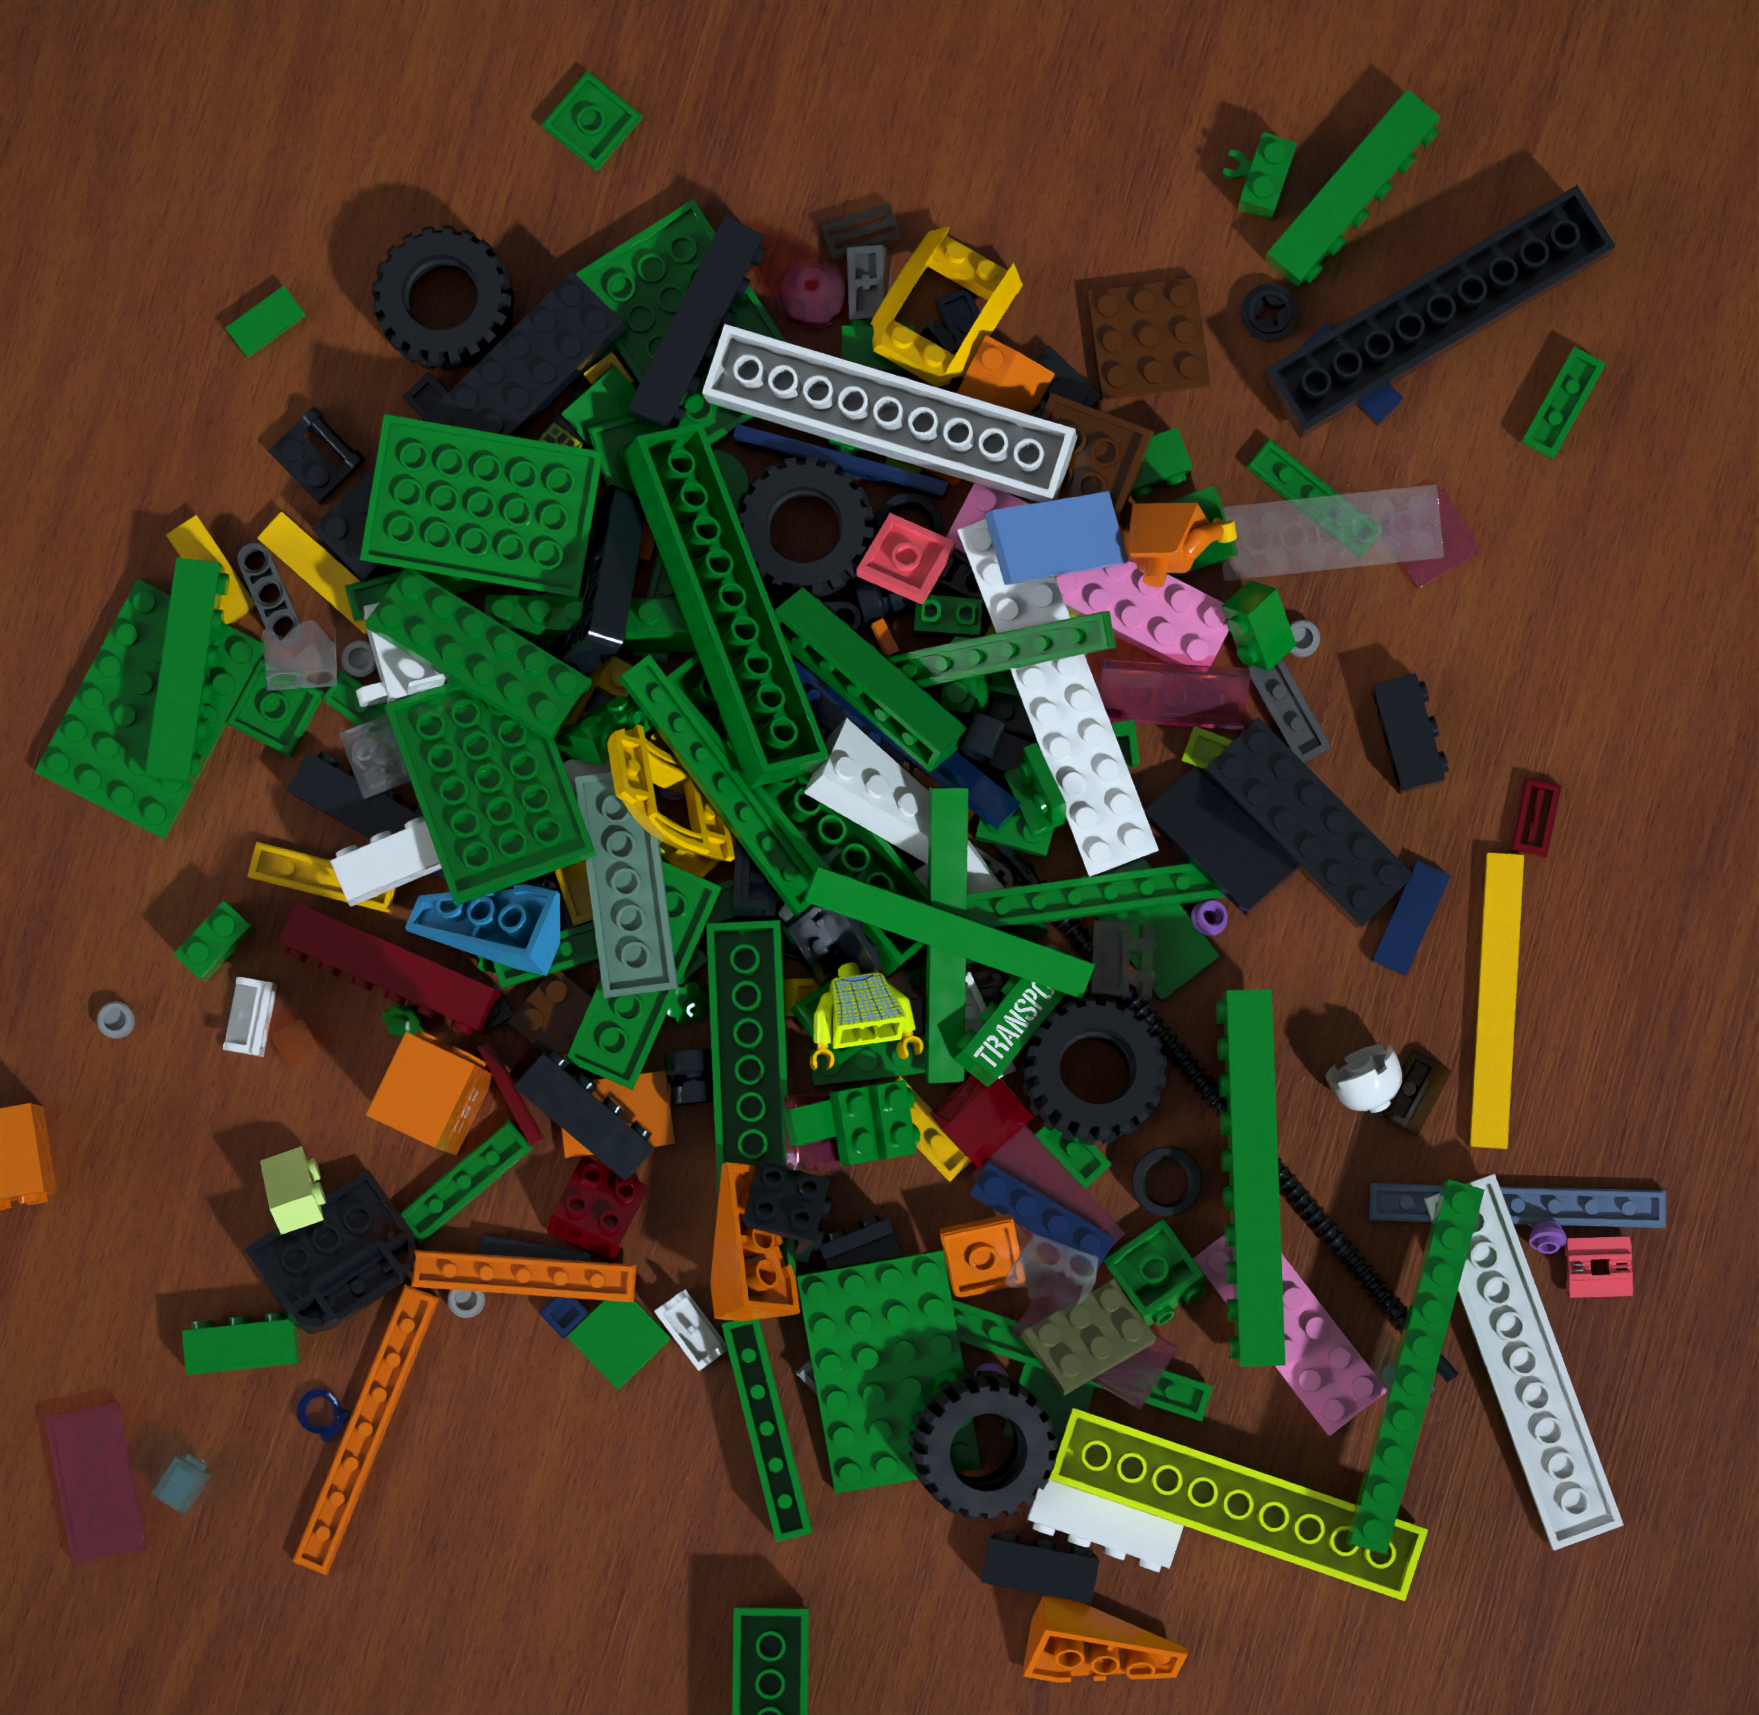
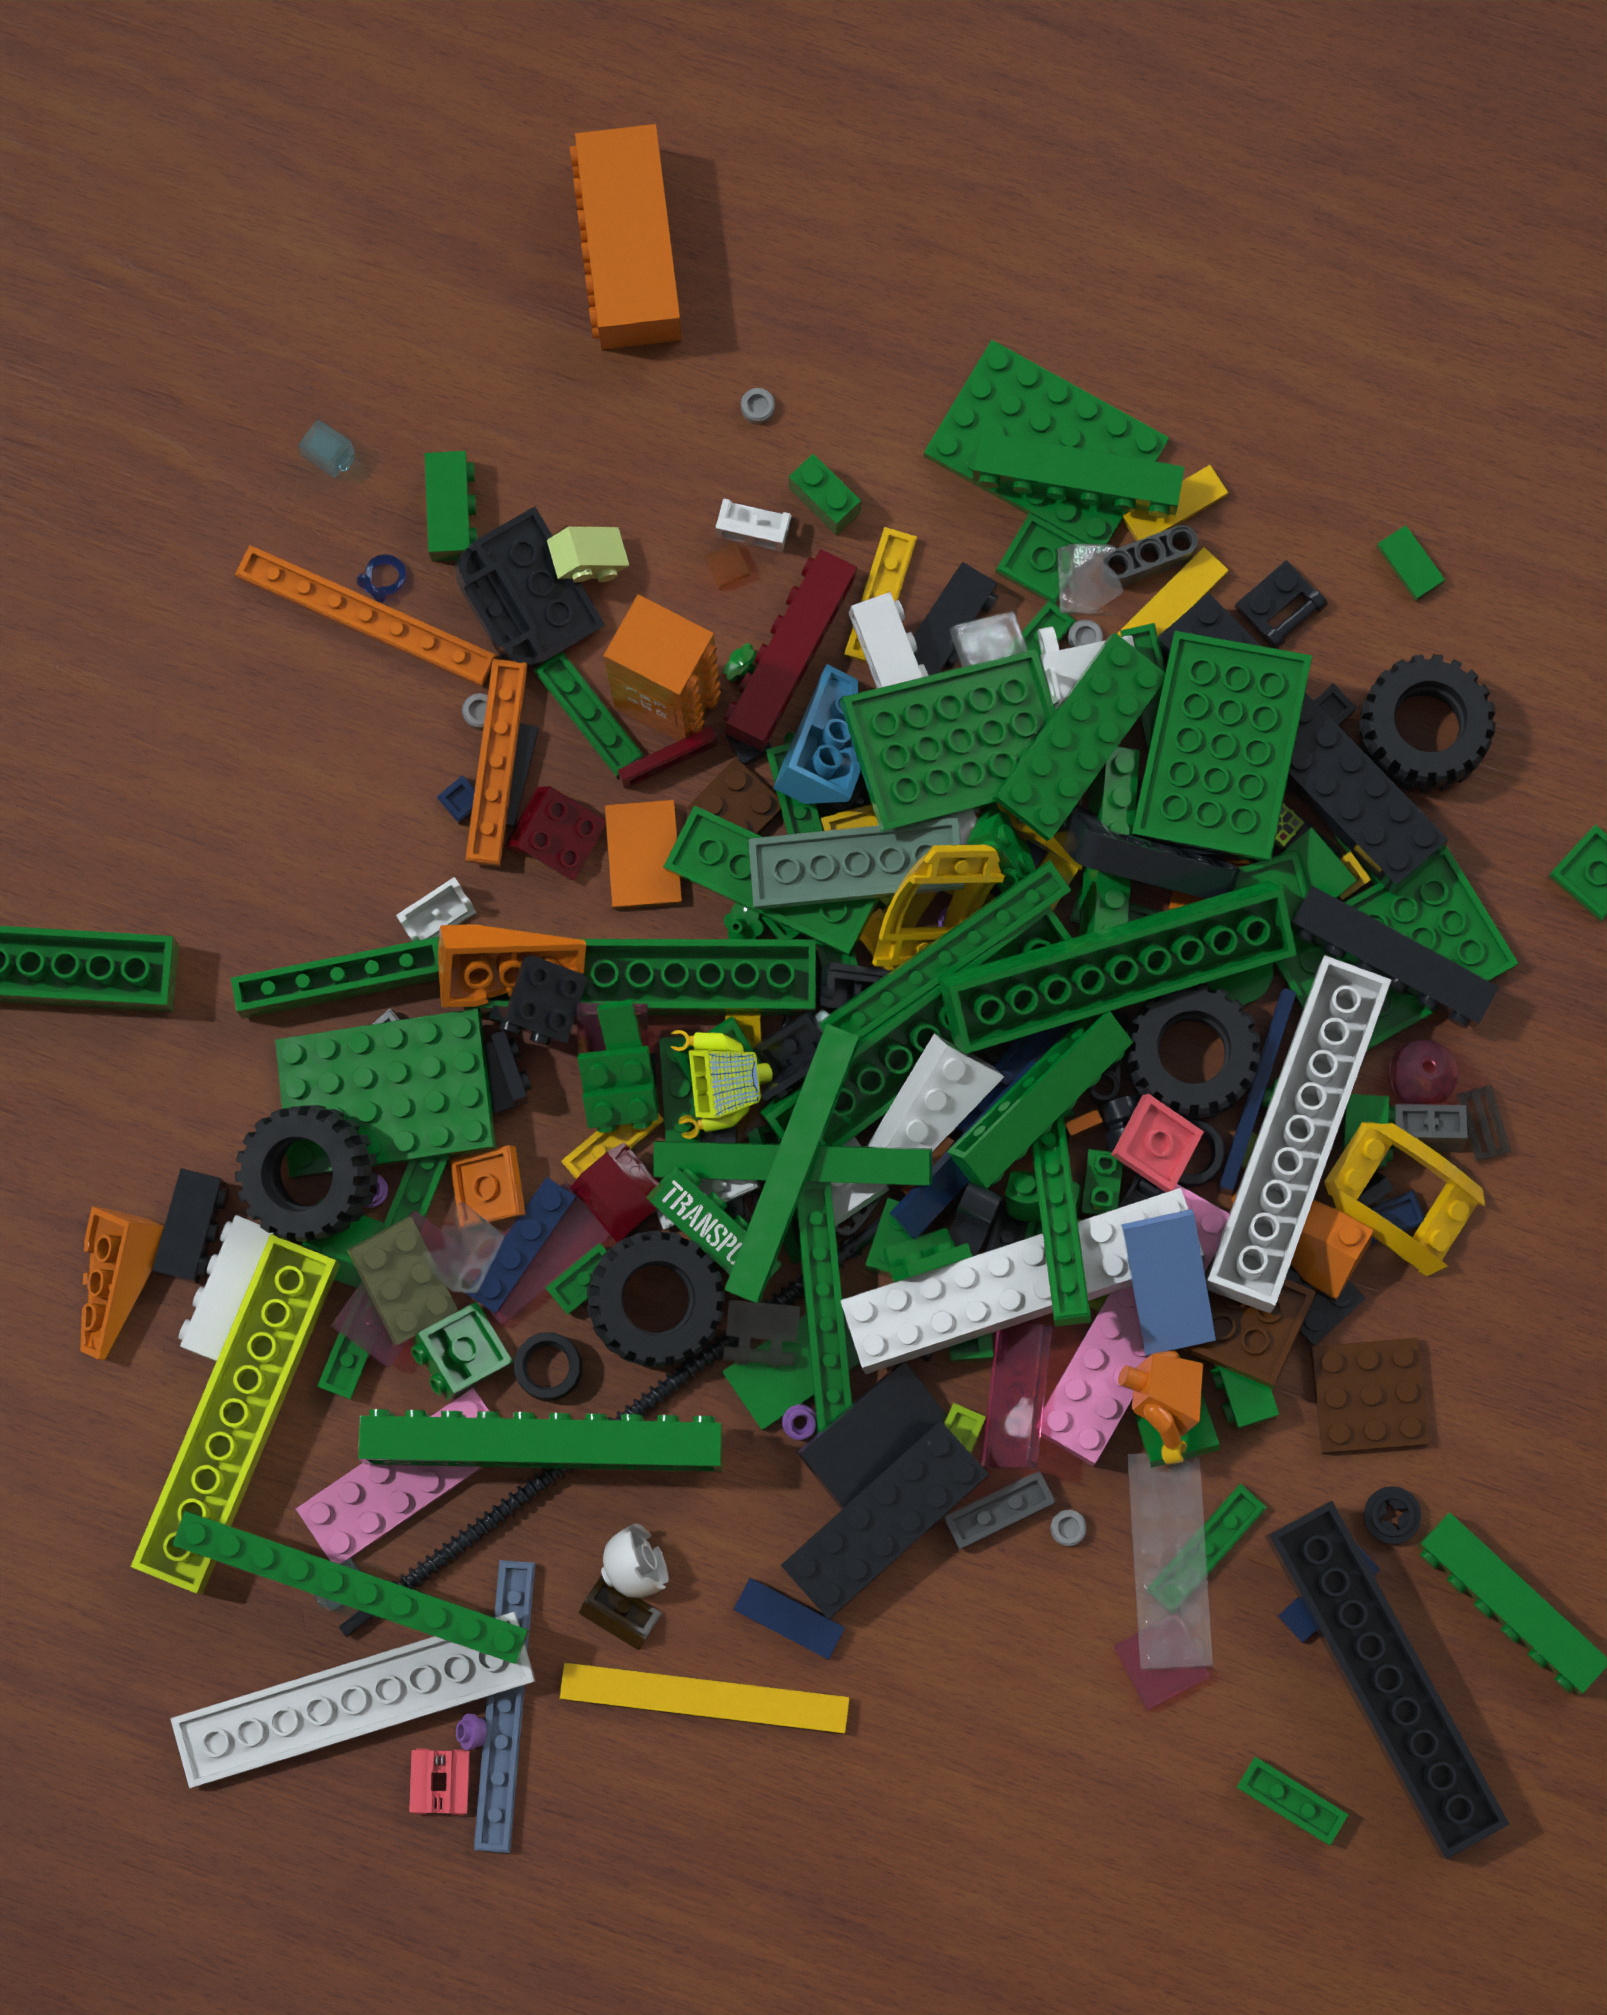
camera: 90 degrees right, 5 degrees down
(95, 1483) = (334, 374): clear pink tile -> none
(581, 1110) = (646, 817): black wedge -> none
(619, 1339) = (432, 847): green tile -> none
(689, 1077) = (673, 920): black wheel -> none
(1259, 625) = (1079, 1481): green brick -> none
(1263, 175) = (1528, 1515): green brick -> none
(1409, 733) = (970, 1627): black brick -> none
(1529, 847) = (912, 1756): dark red tile -> none

